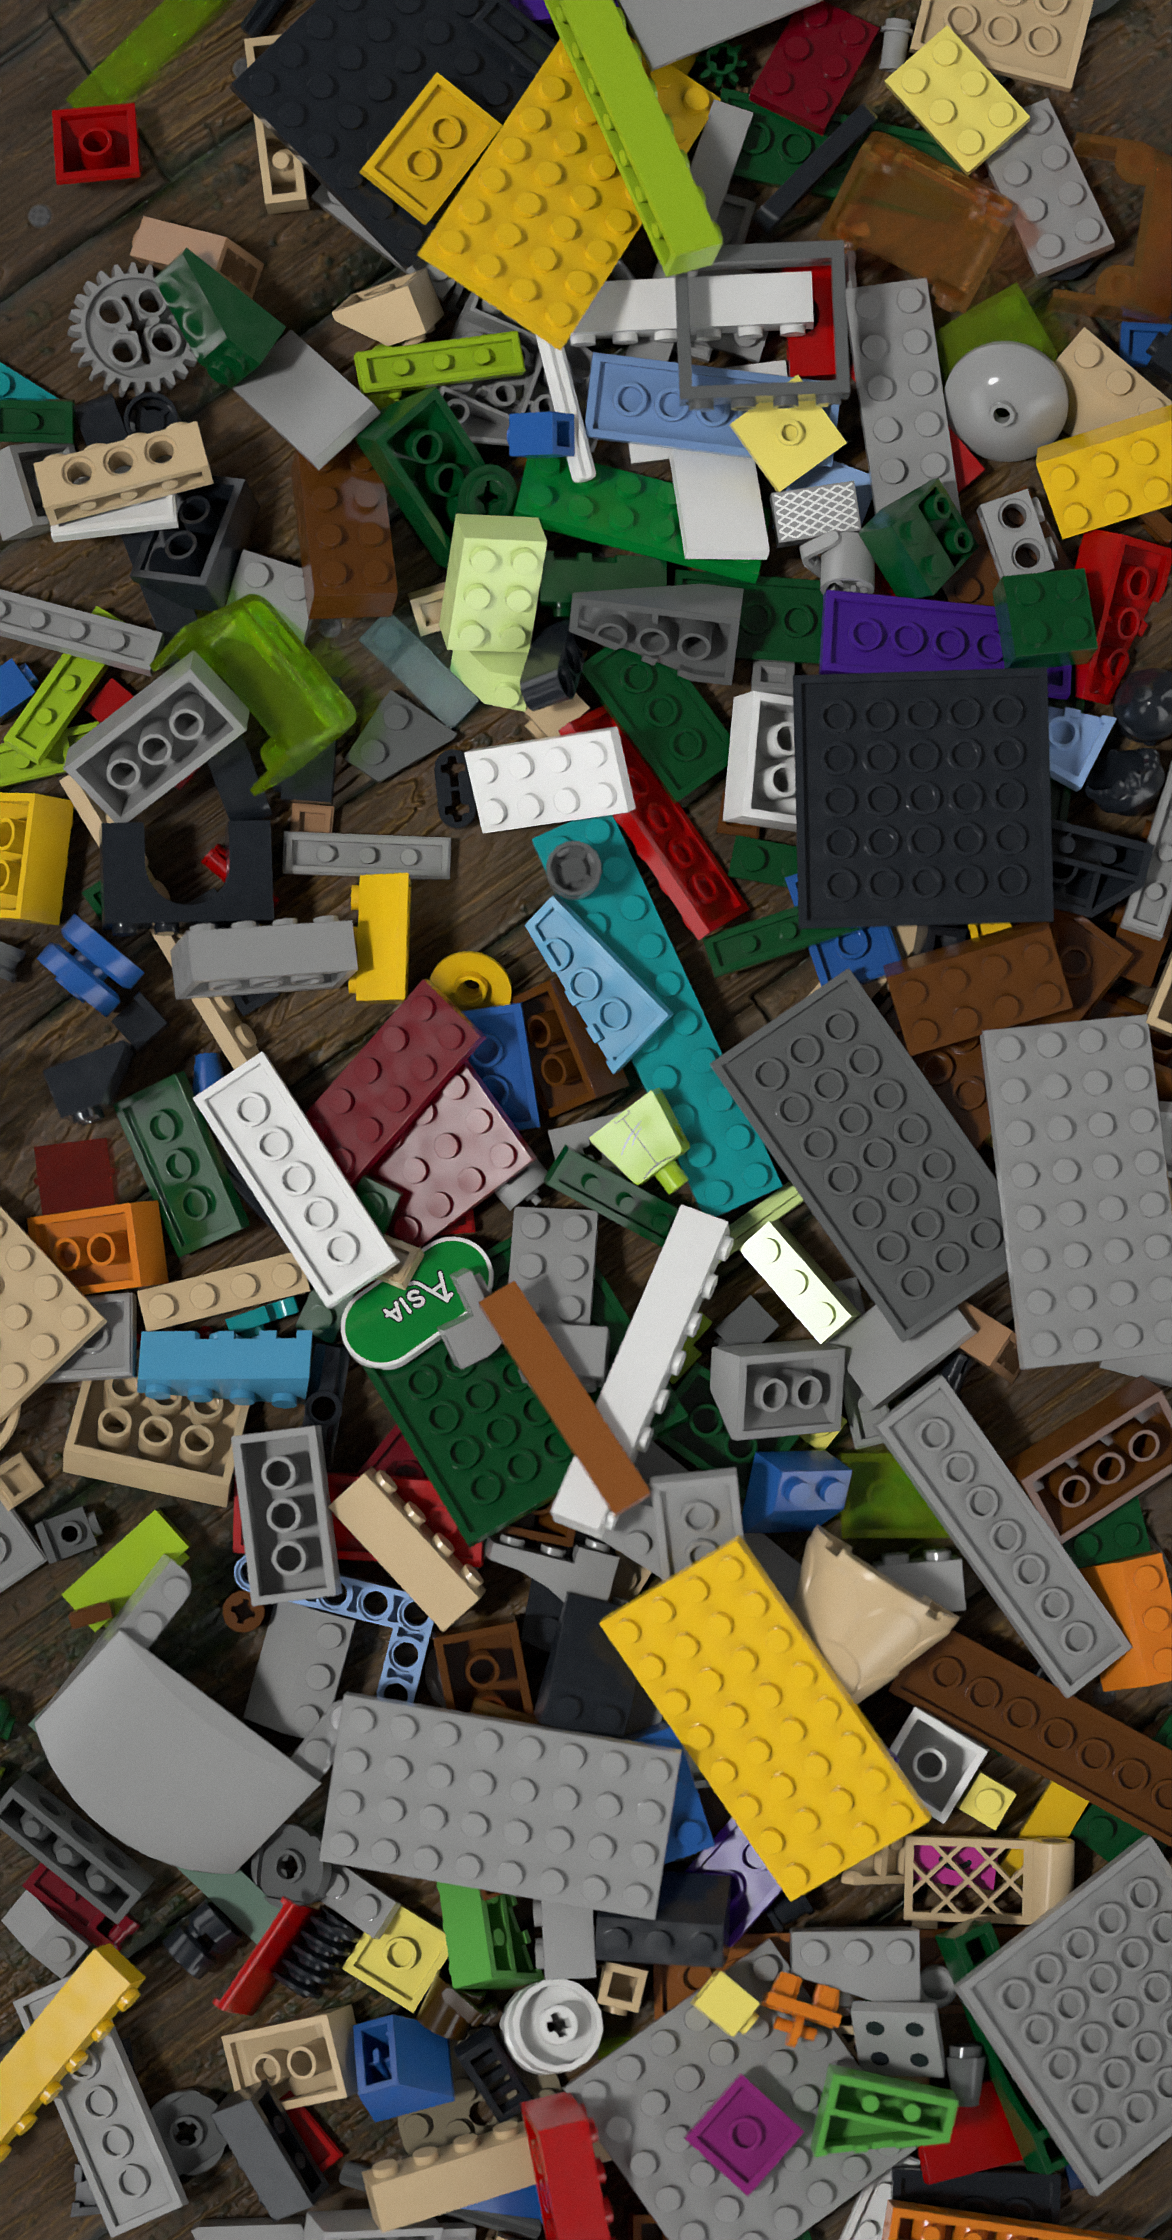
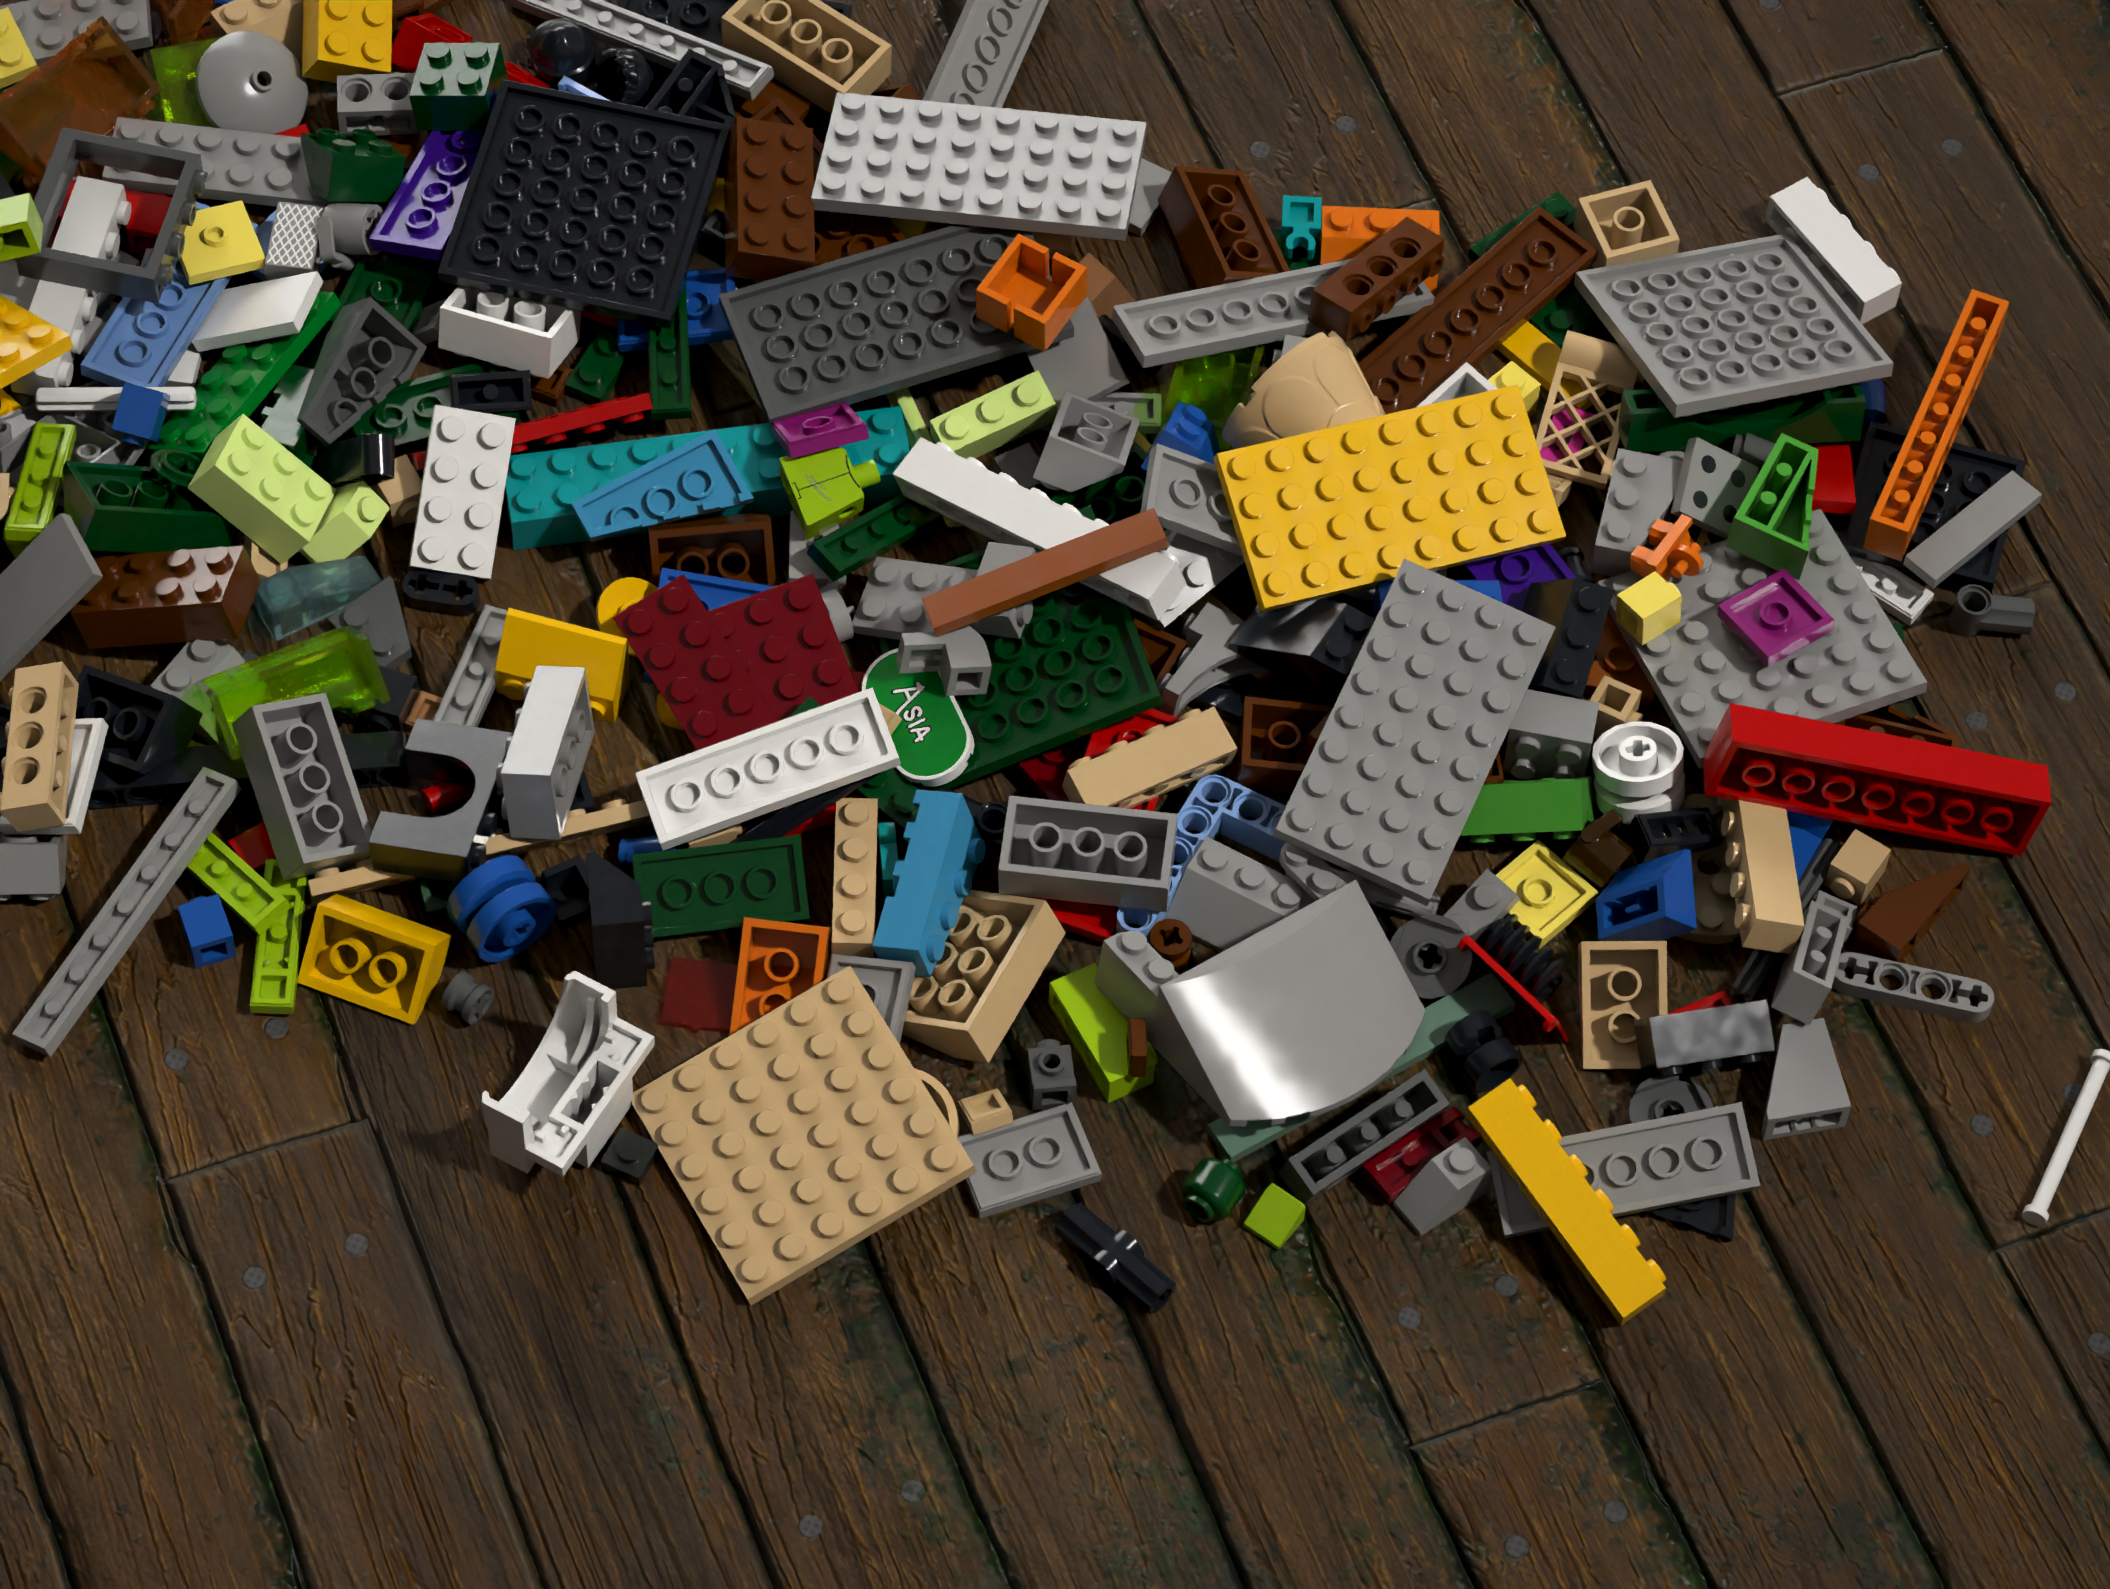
camera: 75 degrees left, 30 degrees down
(573, 870) = (553, 475): dark grey wheel -> none
(689, 767) = (492, 391): none -> black slope
(702, 1119) = (819, 430): none -> magenta tile
(912, 1293) = (1022, 296): none -> orange piece
(1118, 1658) = (1376, 279): none -> reddish brown brick
(1141, 1533) = (1301, 223): none -> teal plate

